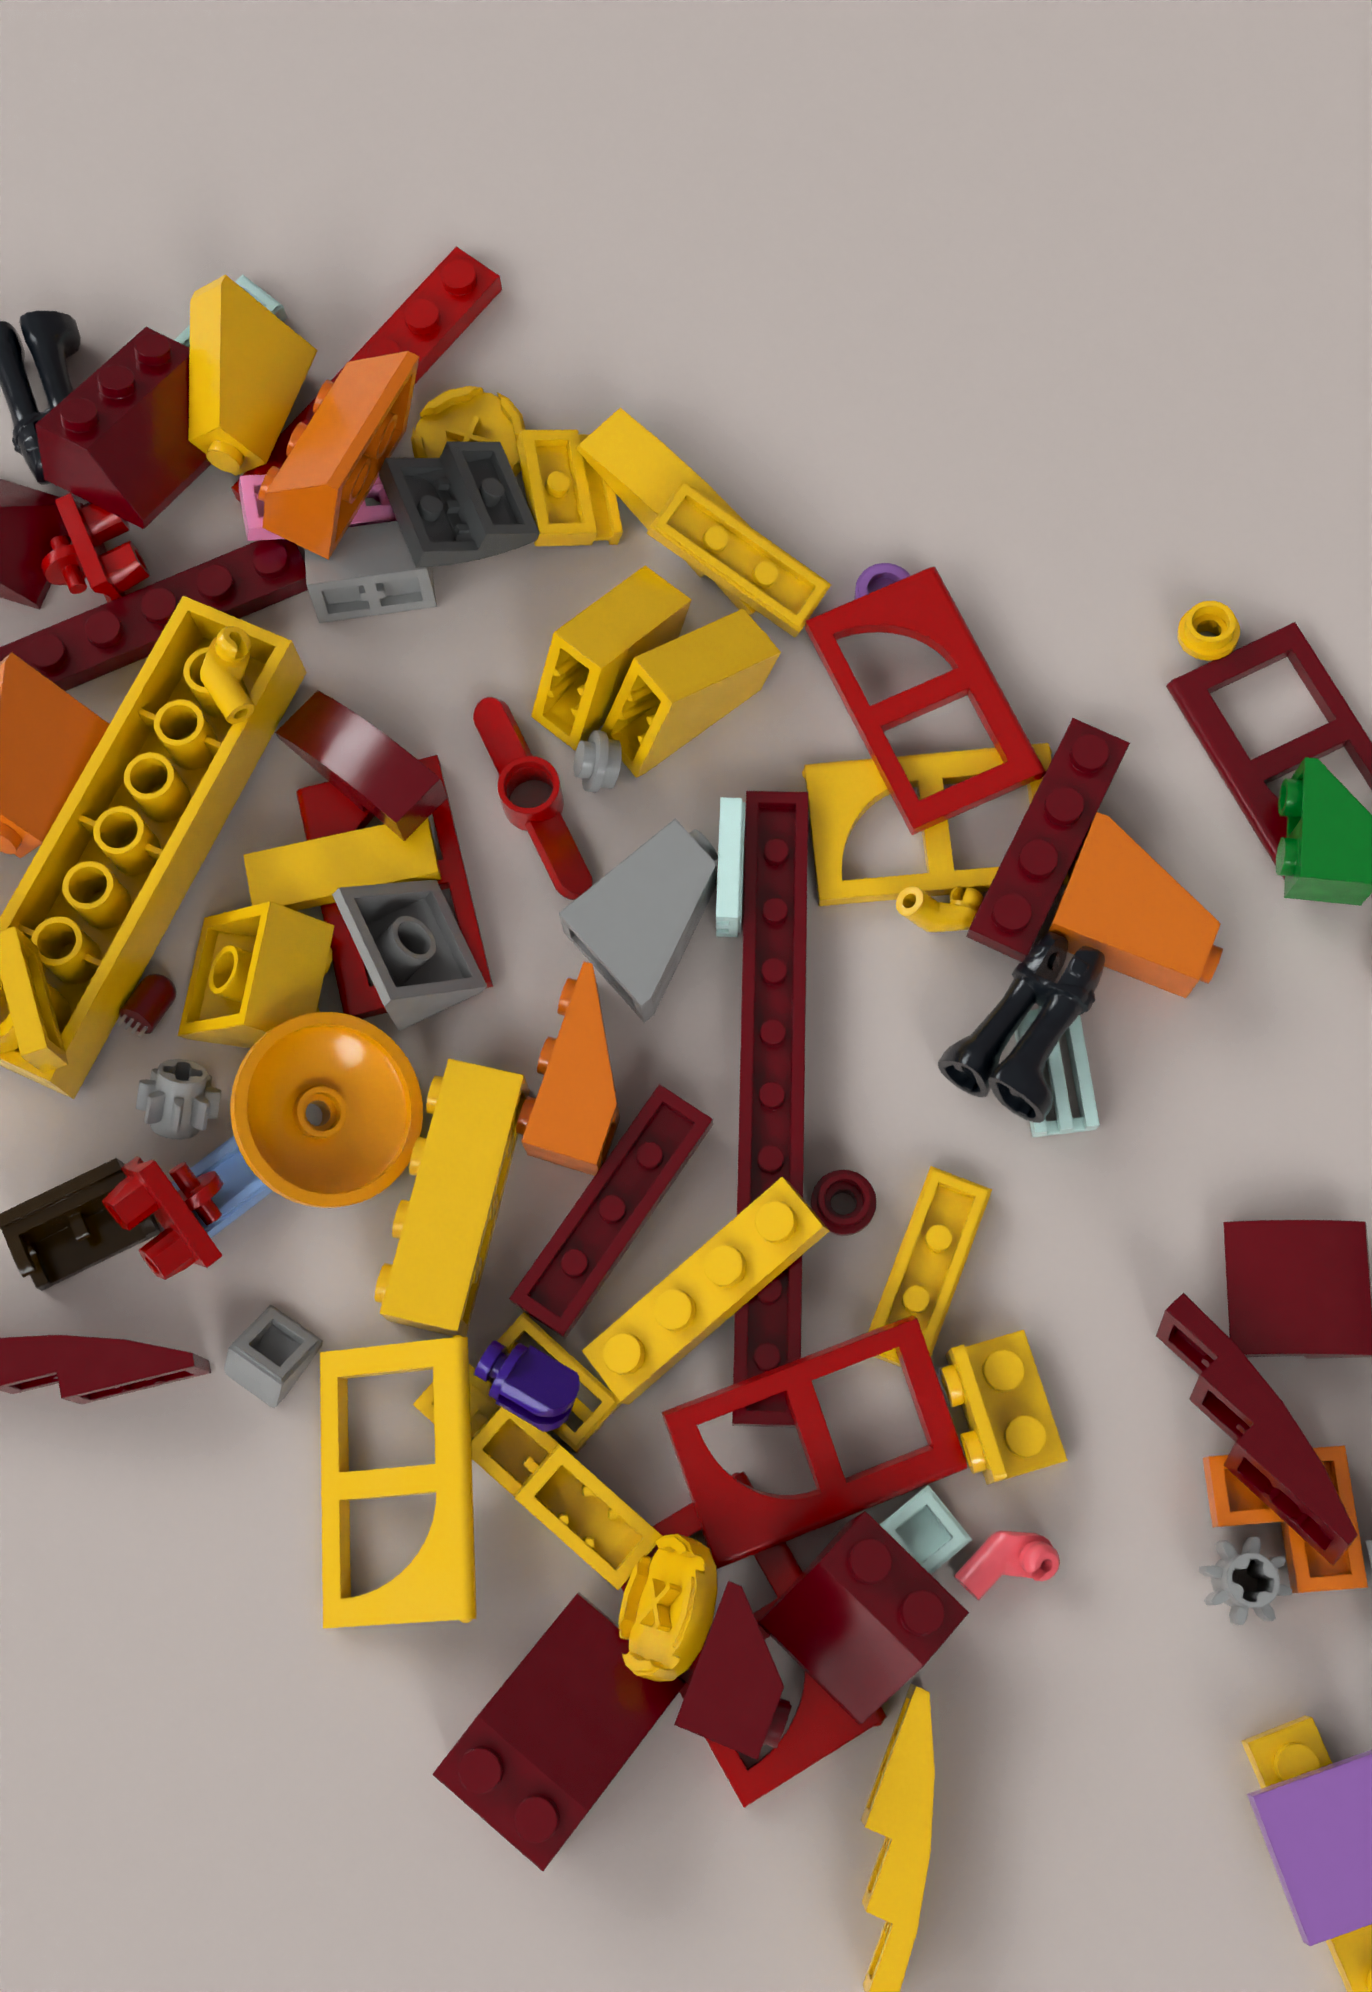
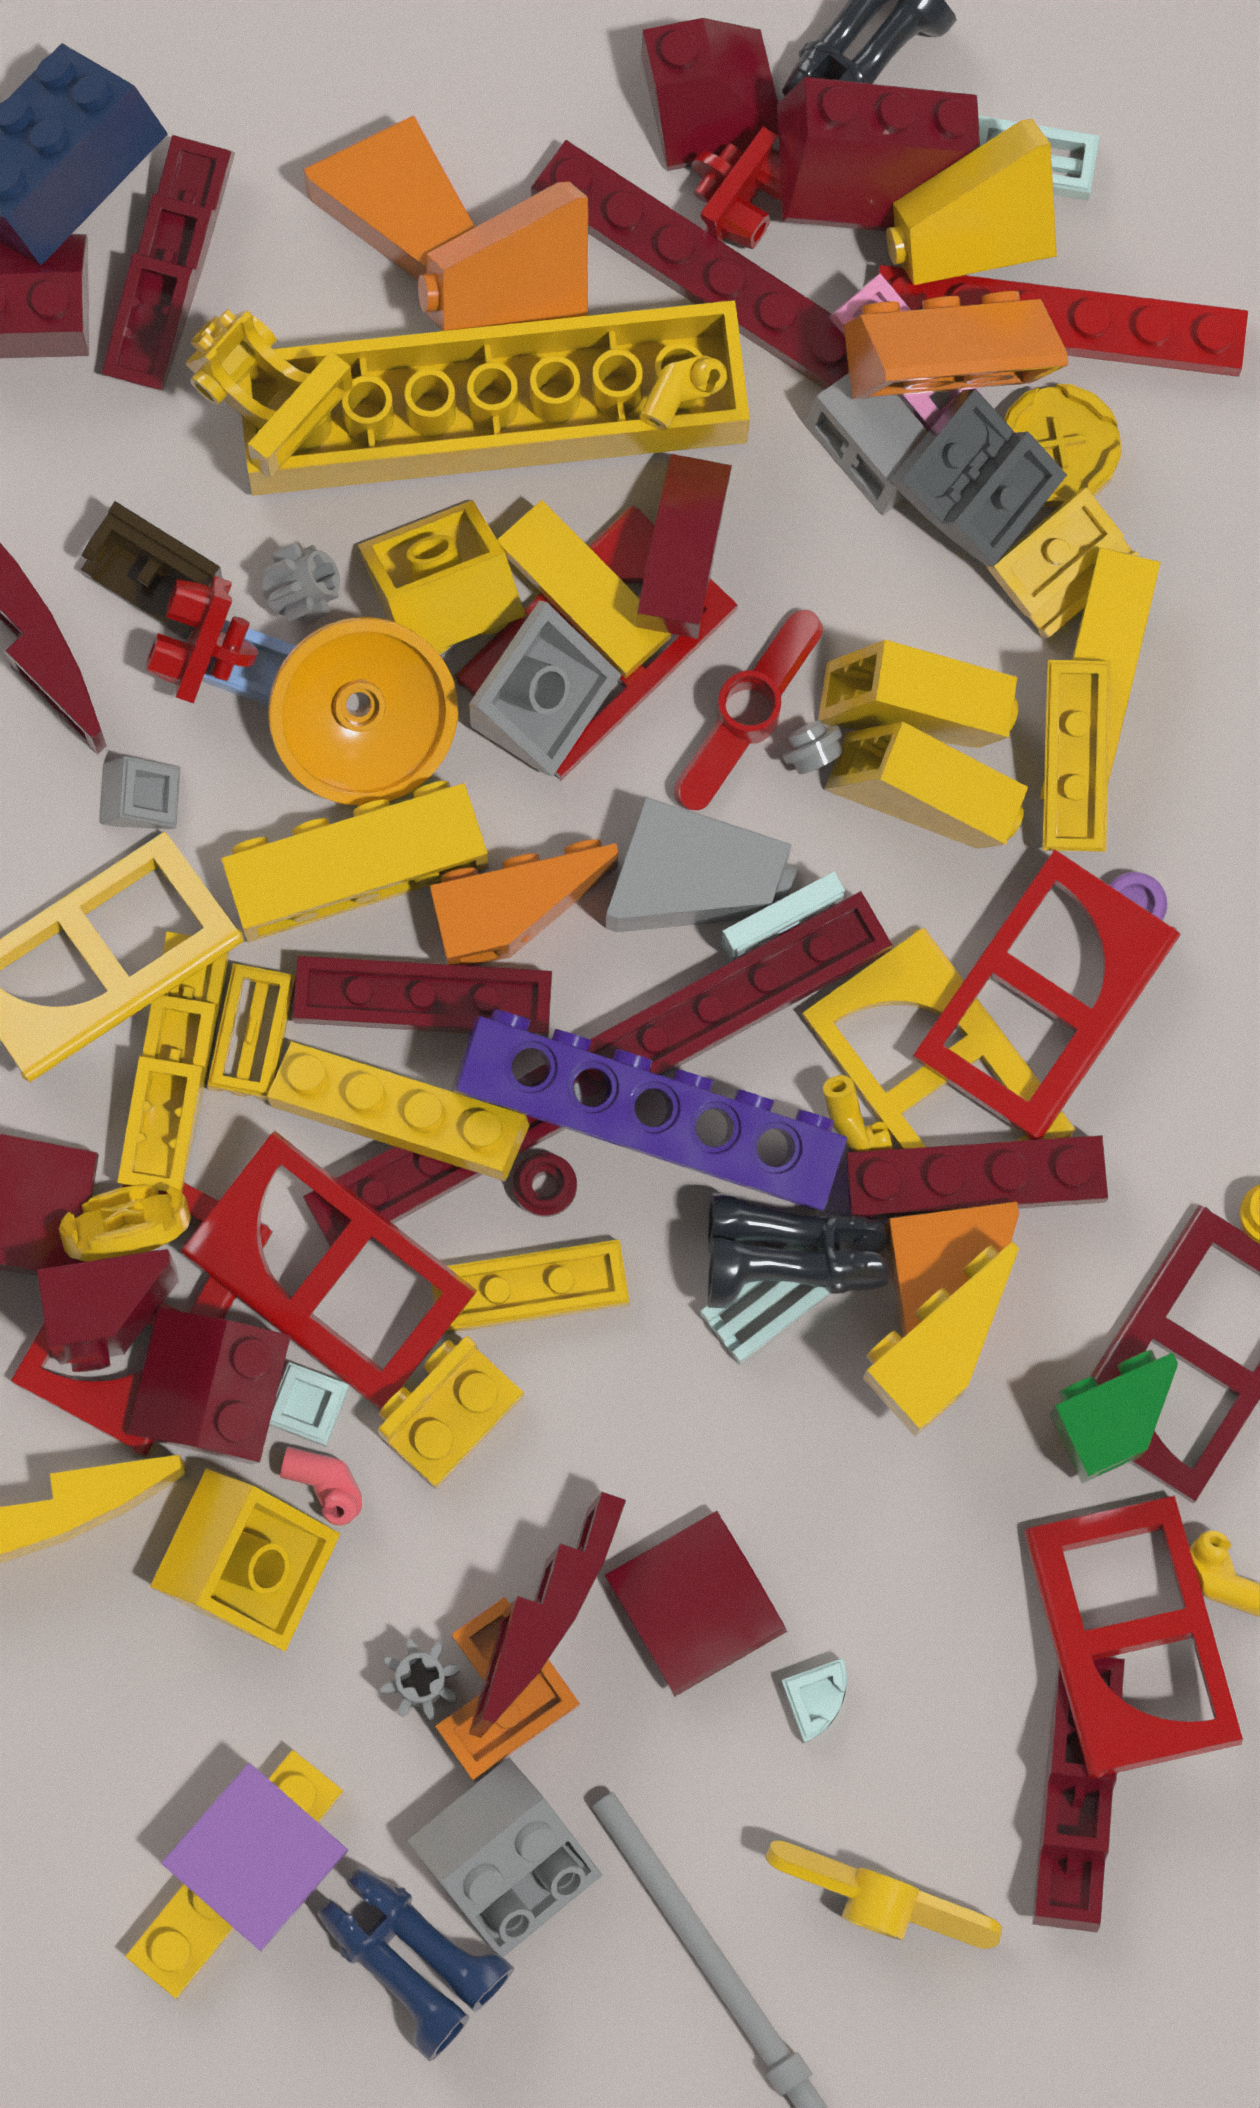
camera: 50 degrees right, 5 degrees up
(148, 1004) = (369, 502): dark red piece -> none
(529, 1384) = (236, 1013): dark purple arm -> none
(965, 974) = (800, 1178): none -> dark purple brick
(1043, 1684) = (245, 1559): none -> yellow slope
(1208, 941) = (937, 1358): none -> yellow slope

